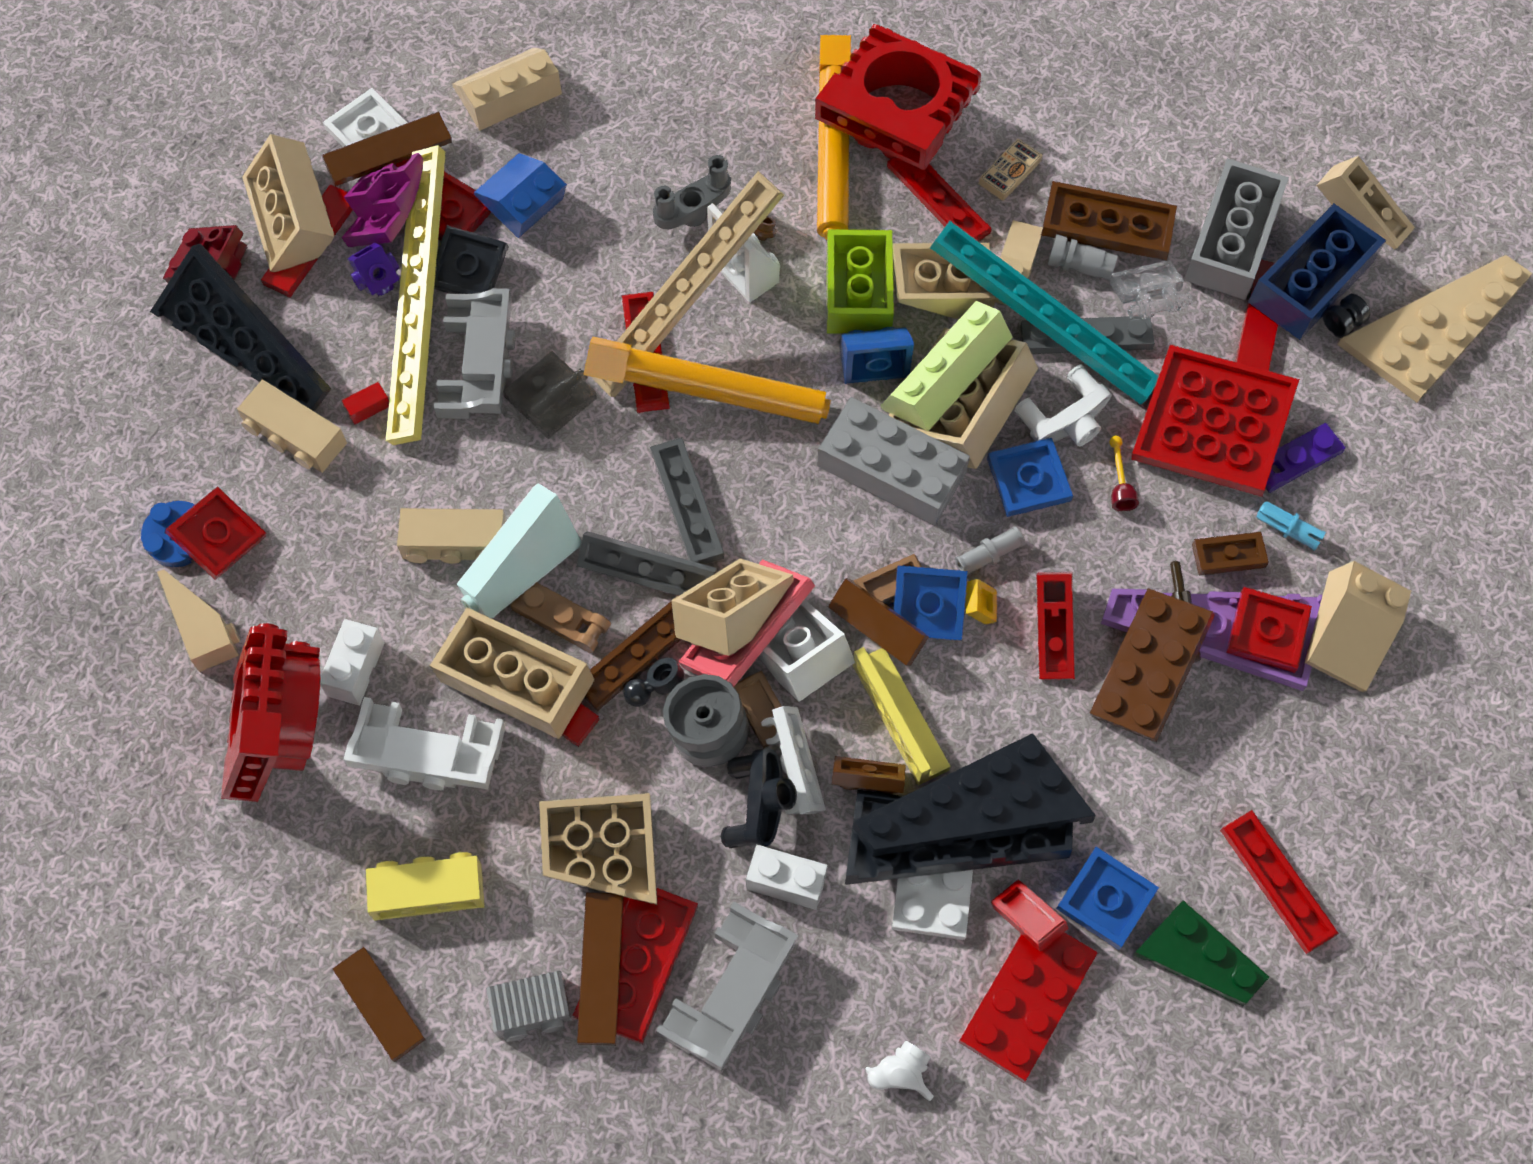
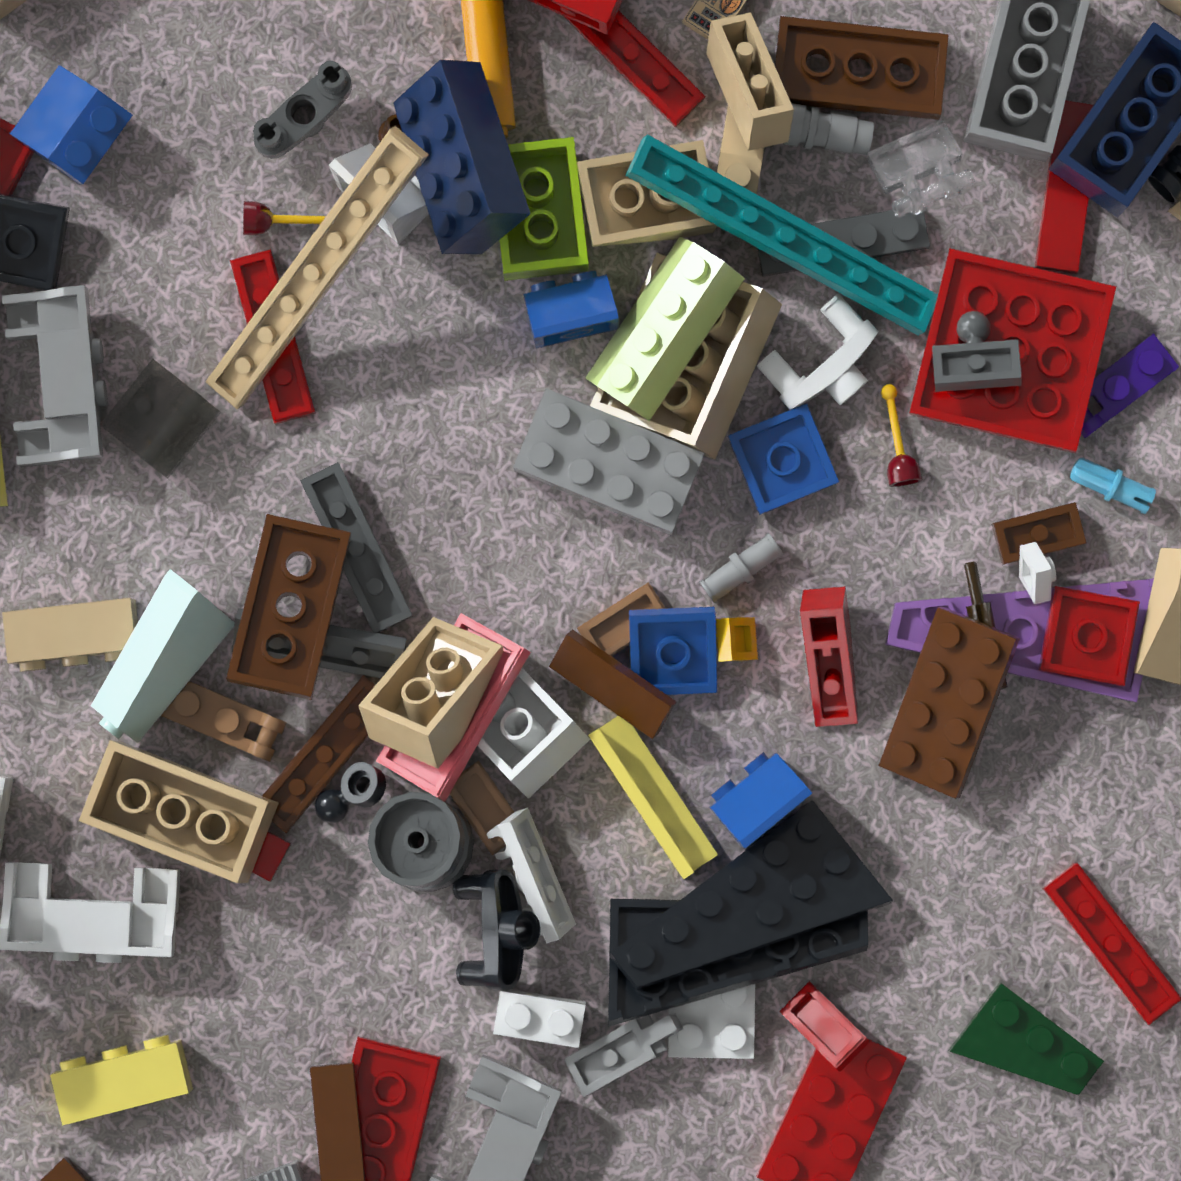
camera: 10 degrees left, 20 degrees up
(601, 844) = (318, 1009): tan wedge -> none
(622, 363) = (239, 380): light orange brick -> none
(637, 545) = (307, 630): none -> reddish brown plate
(648, 270) = (259, 218): none -> dark red hinge
(808, 234) = (469, 167): none -> dark blue brick
(852, 915) = (620, 1052): none -> light grey hinge
(868, 774) = (621, 878): reddish brown plate -> none
(991, 723) = (759, 798): none -> blue slope
(1028, 211) = (749, 81): none -> tan brick
(1107, 898) = (913, 992): blue plate -> none
(1187, 415) = (976, 362): none -> dark grey plate
(1228, 575) = (1036, 572): none -> white plate

